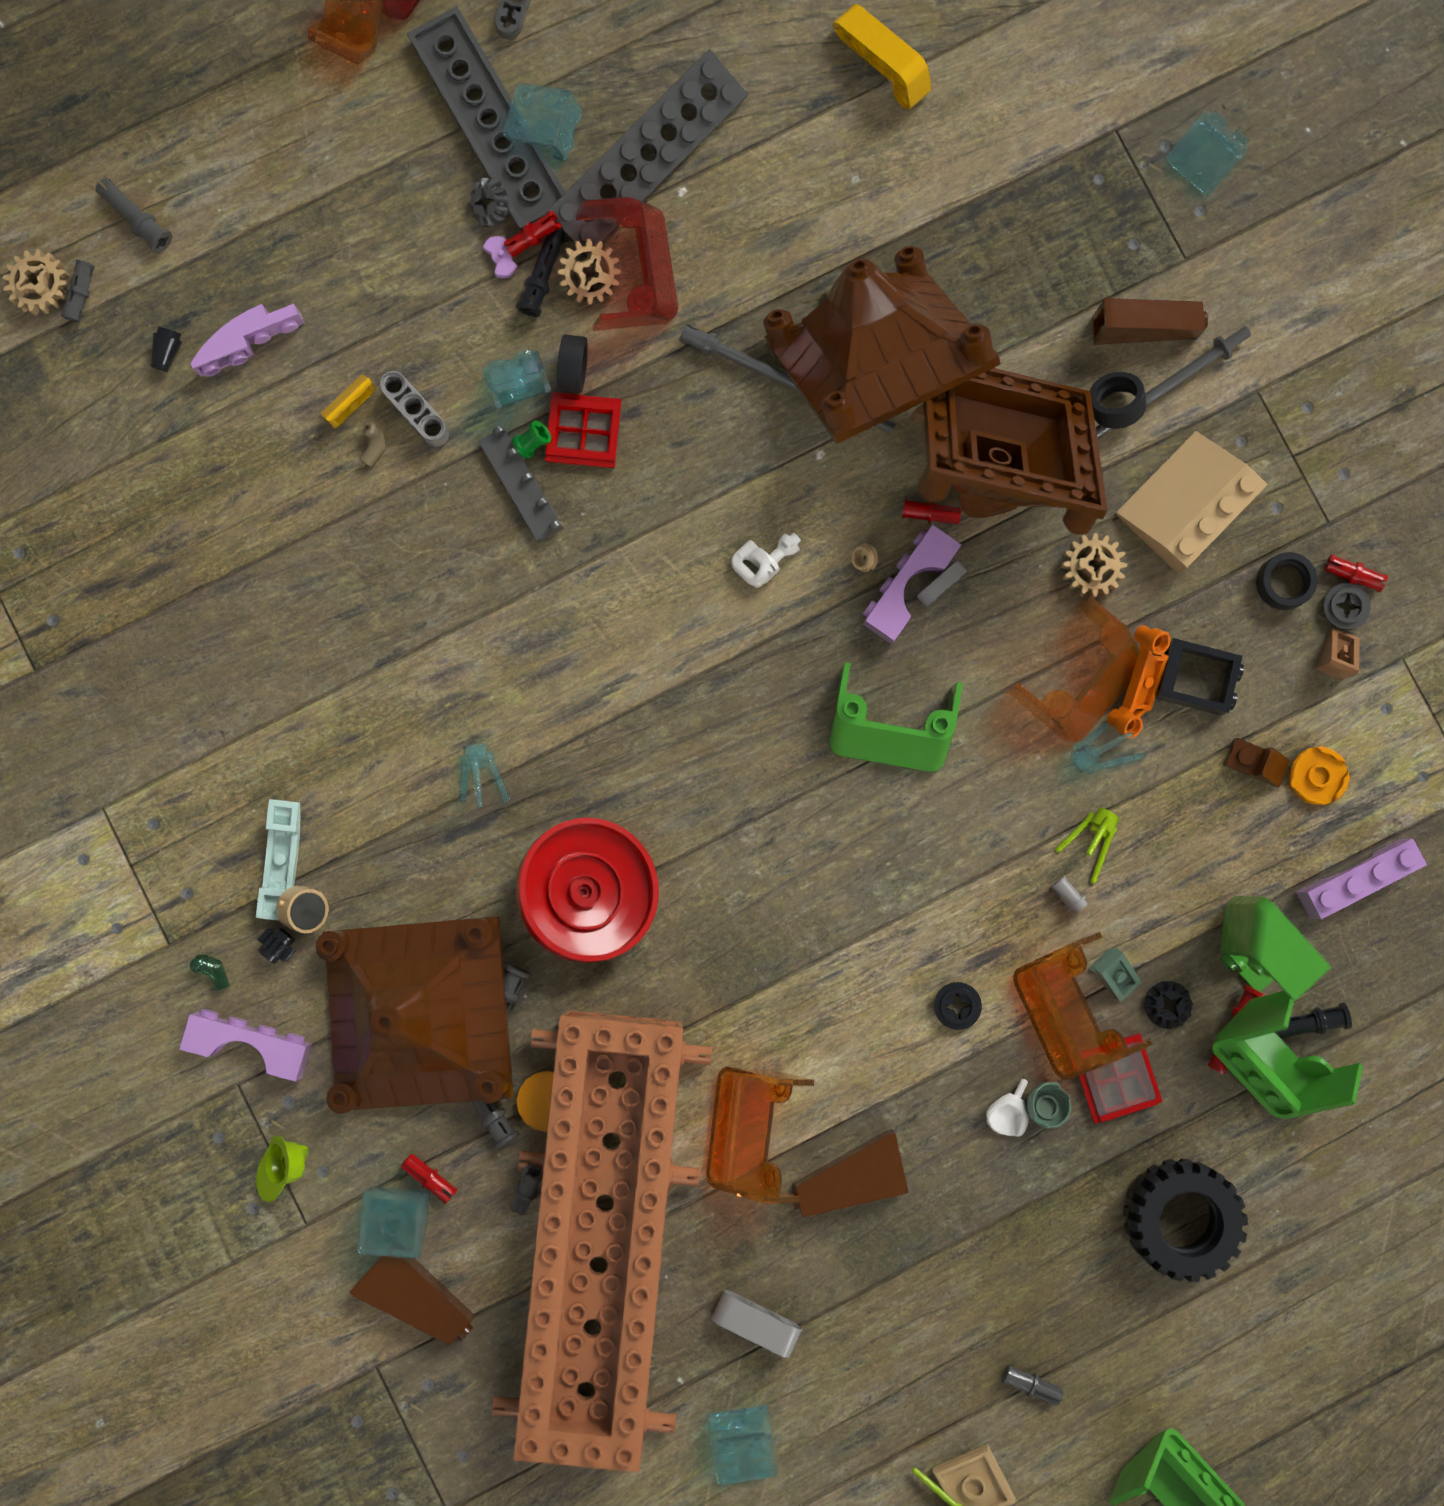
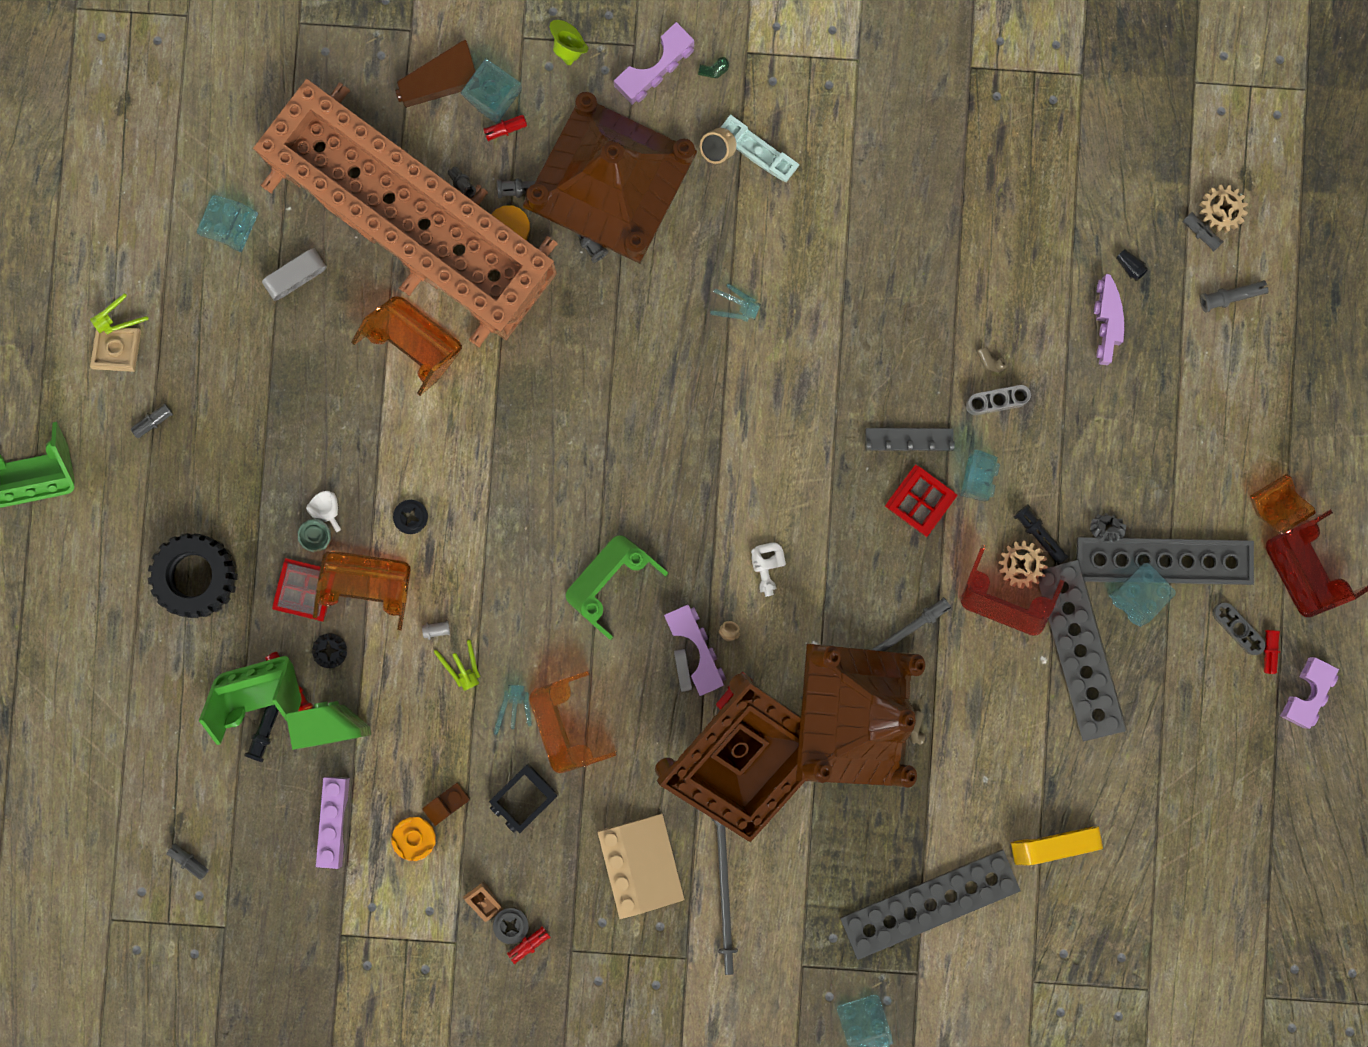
camera: 125 degrees right, 0 degrees up
(276, 945) = (705, 117): black gear -> none
(348, 401) = (1029, 361): yellow slope -> none
(501, 258) = (1074, 516): lavender piece -> none
(531, 439) = (933, 462): green bush -> none
(532, 234) = (1069, 542): red pin -> none
(572, 363) = (967, 517): black tyre -> none
(587, 890) = (622, 327): red container -> none
(855, 1178) = (344, 387): reddish brown slope -> none
(1031, 139) = (944, 911): none -> dark grey plate
(1105, 564) = (630, 784): tan gear -> none
(1114, 383) = (719, 857): black tyre -> none
(1116, 973) = (368, 628): sand green slope -> none
(1144, 680) = (540, 758): orange plate -> none
(1147, 321) = (773, 912): reddish brown slope -> none
(1305, 568) = (538, 908): black tyre -> none

